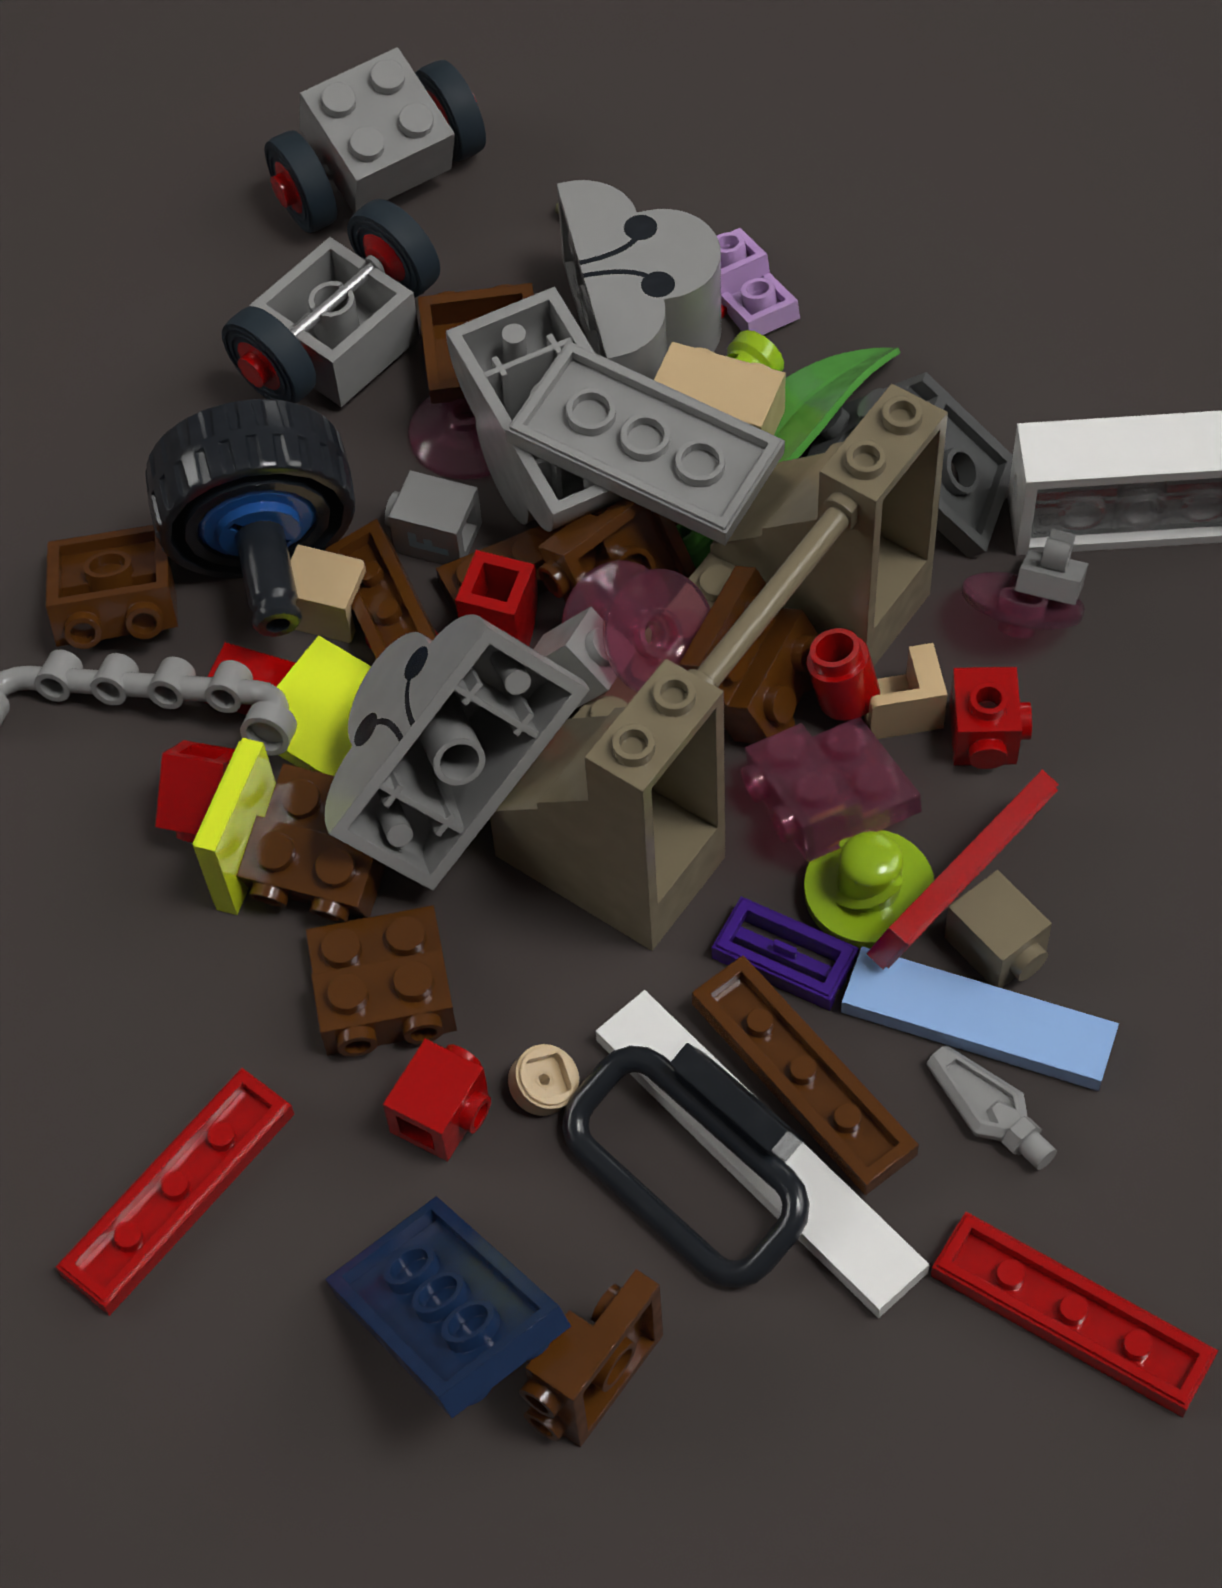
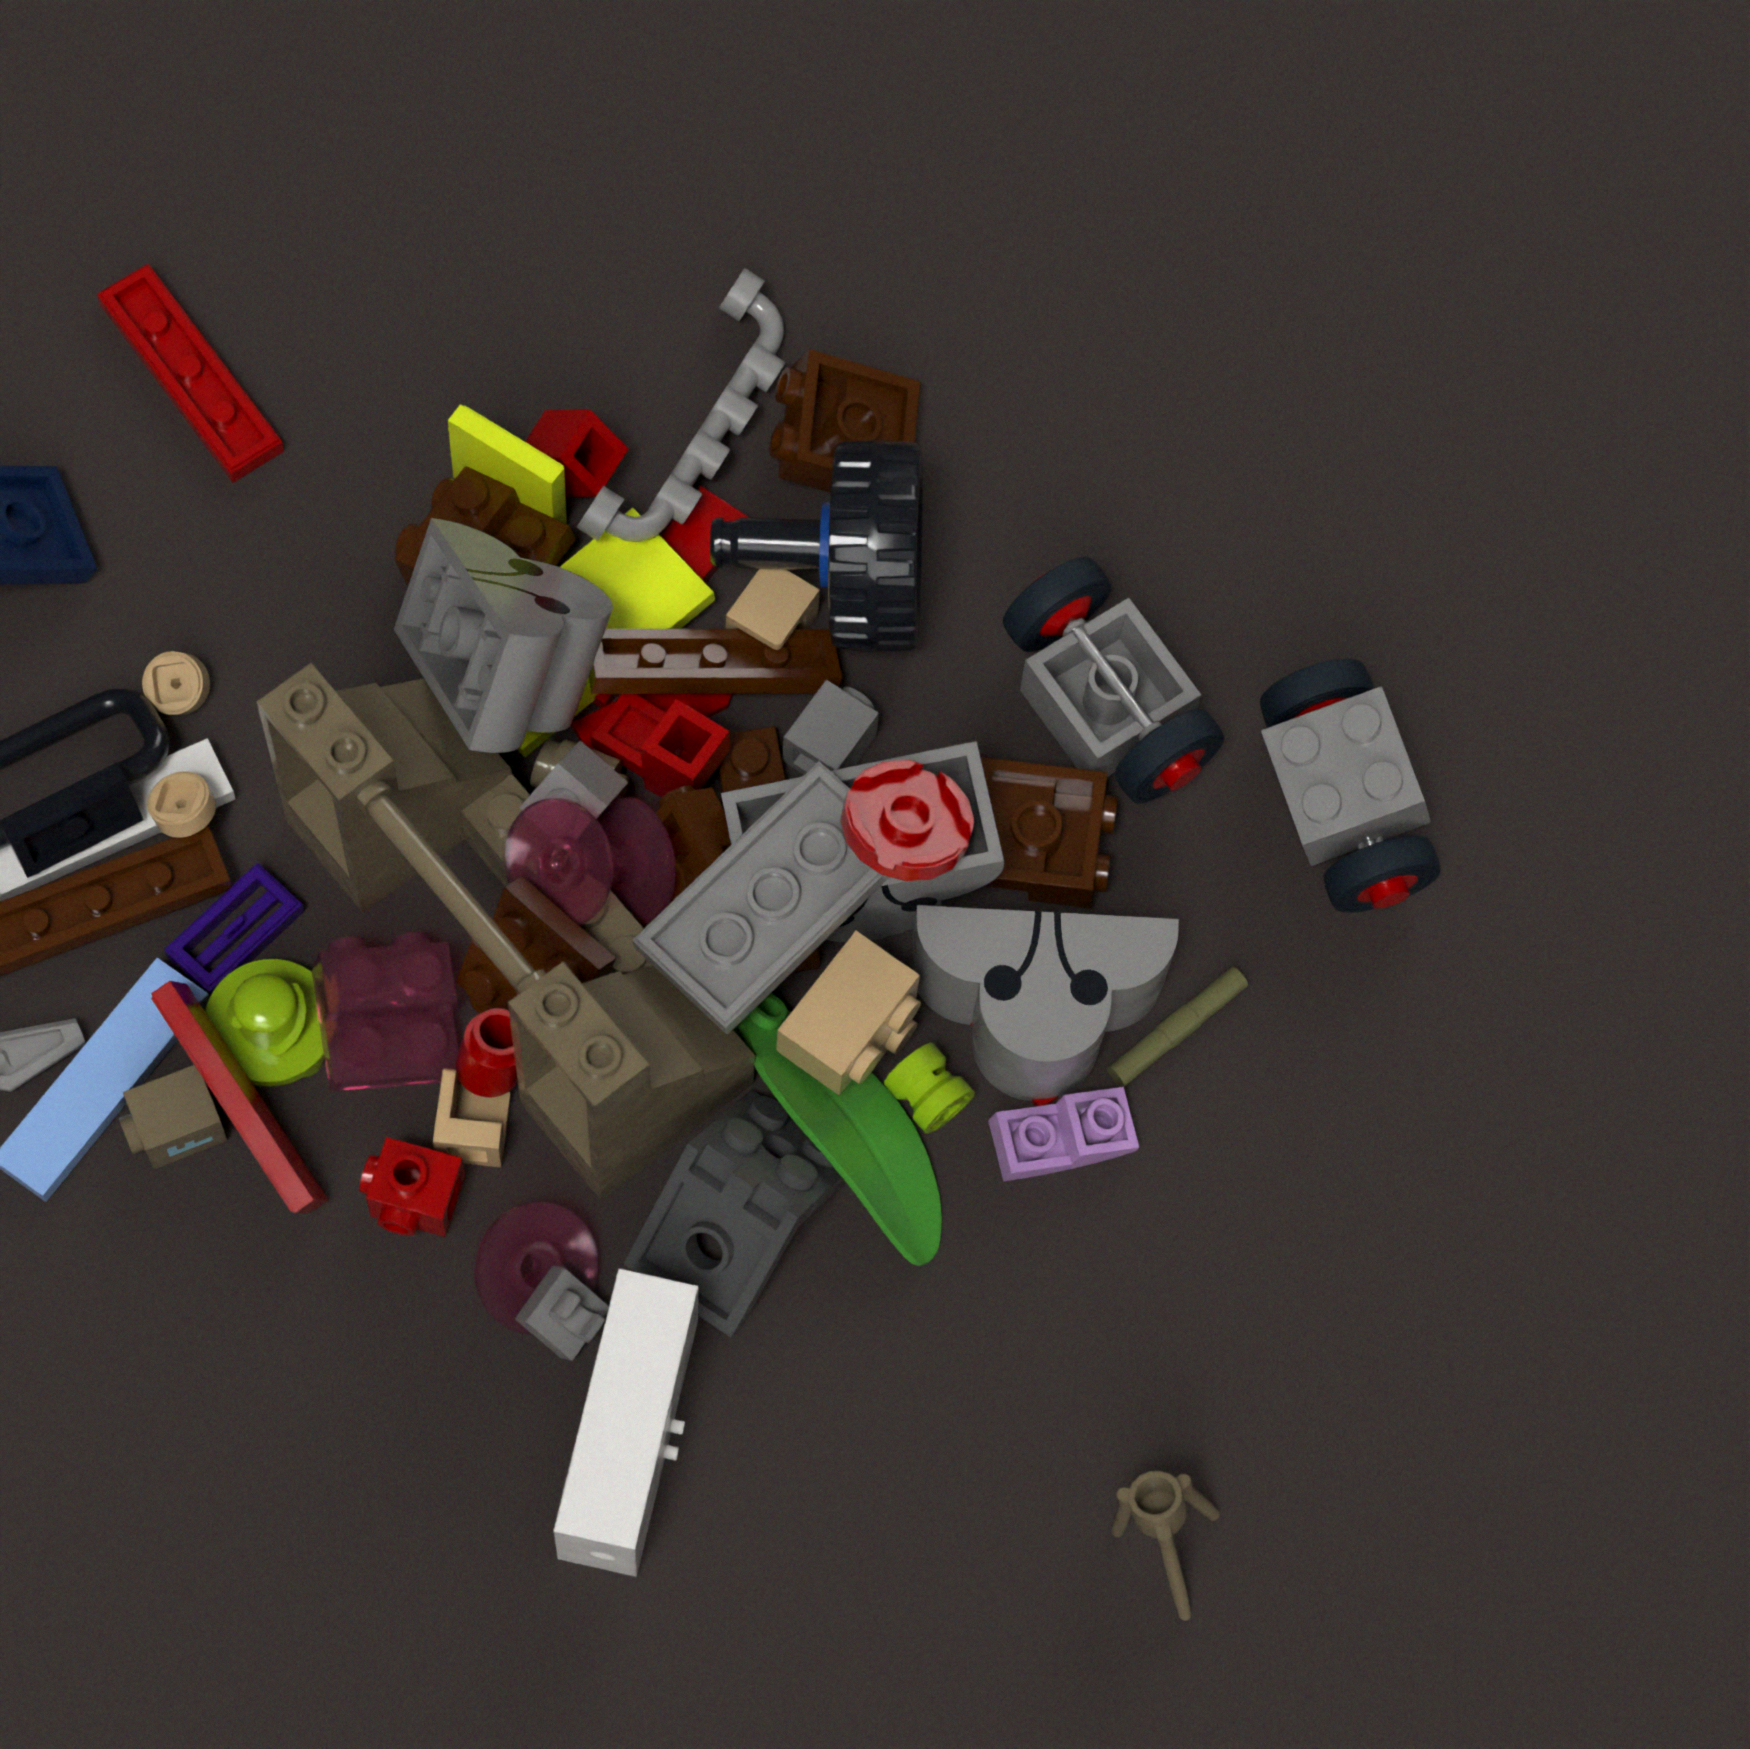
camera: 95 degrees right, 10 degrees up
(380, 981) = (327, 574): reddish brown plate -> none
(438, 1099) = (177, 583): red brick -> none
(548, 344) = (906, 820): none -> tile
(682, 1014) = (181, 804): none -> tan tile
(1056, 112) = (1159, 1511): none -> dark tan plant

